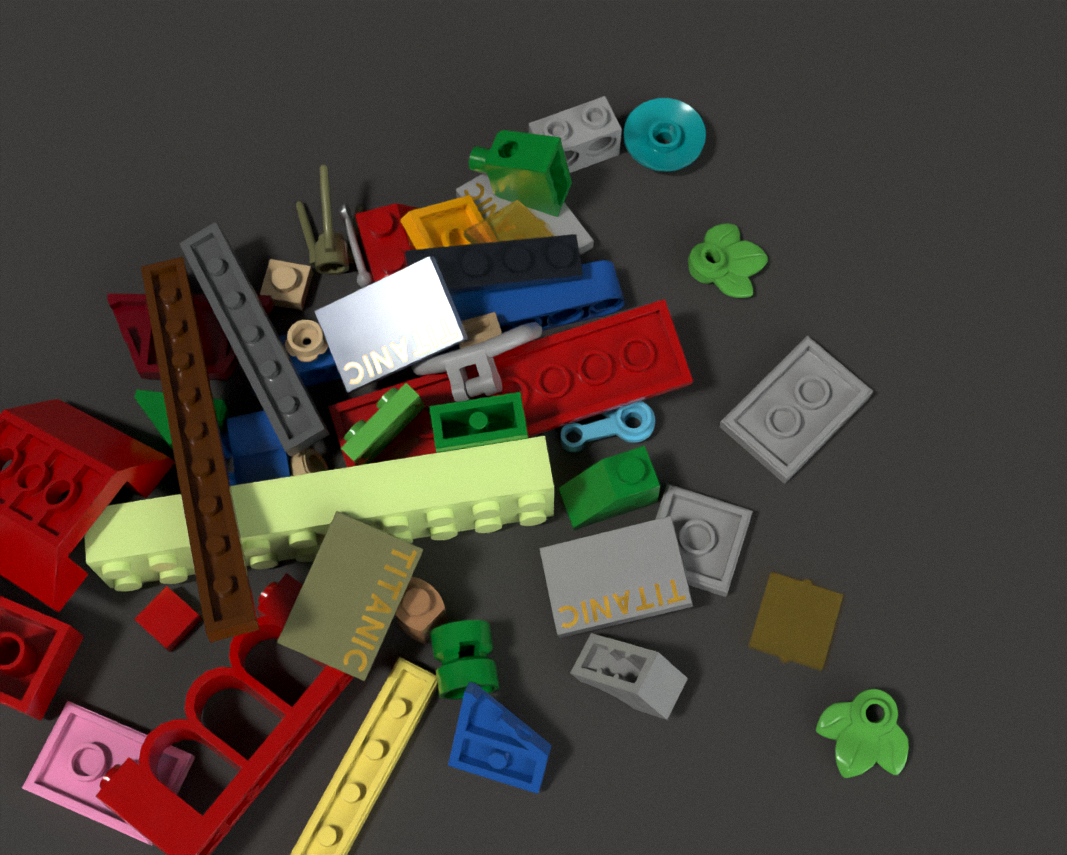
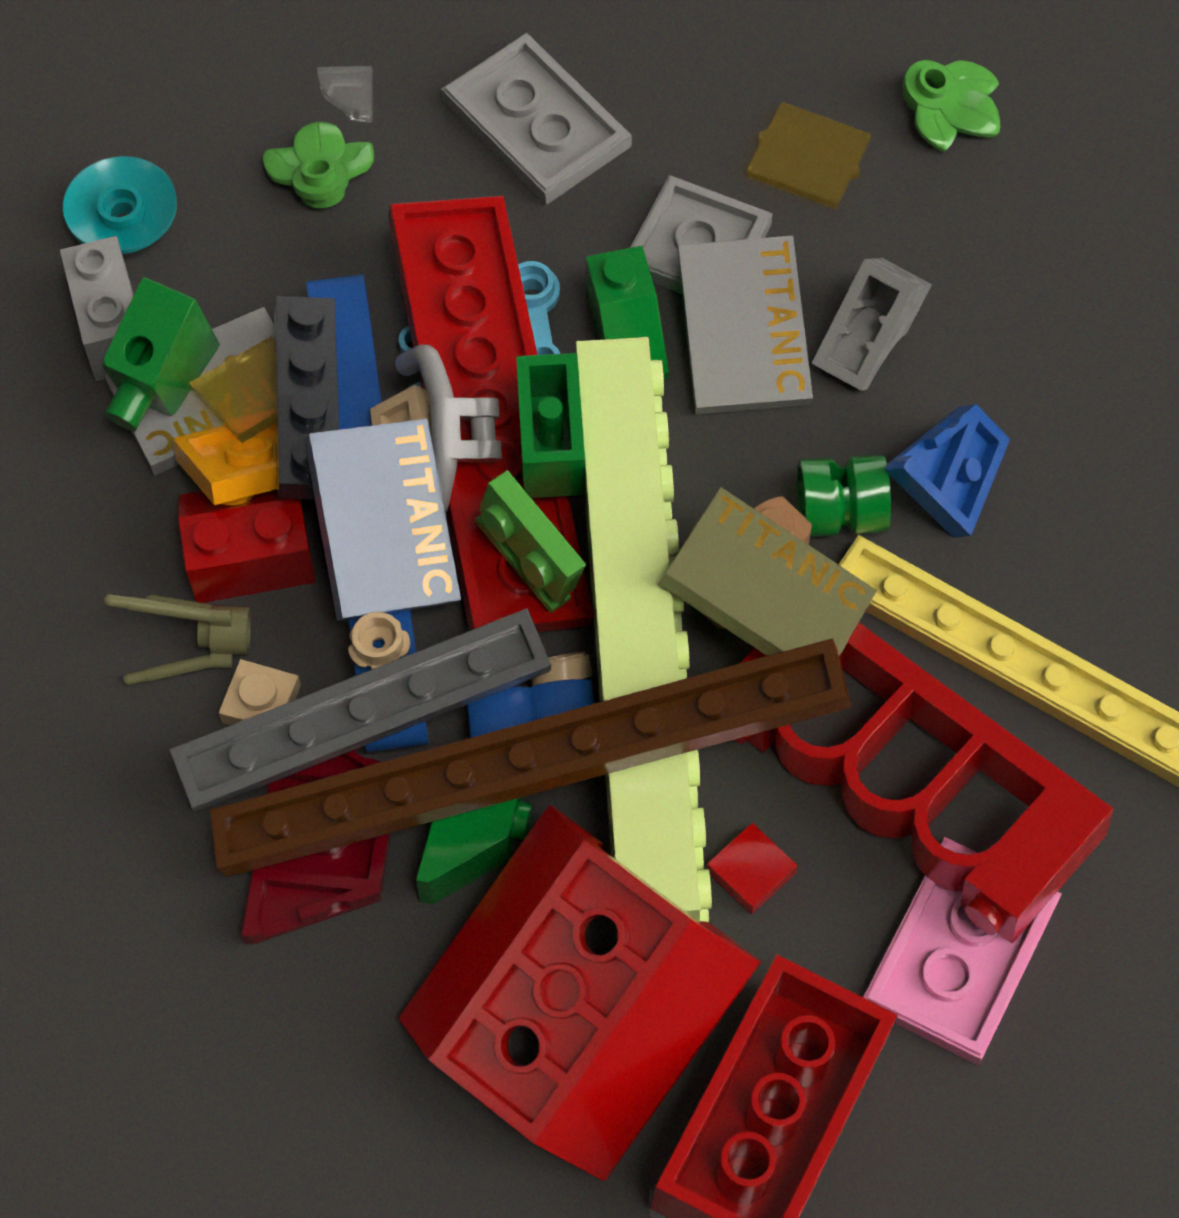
camera: 85 degrees left, 5 degrees down
(364, 278) = (267, 596): light grey hinge -> none
(798, 273) = (349, 90): none -> clear tile

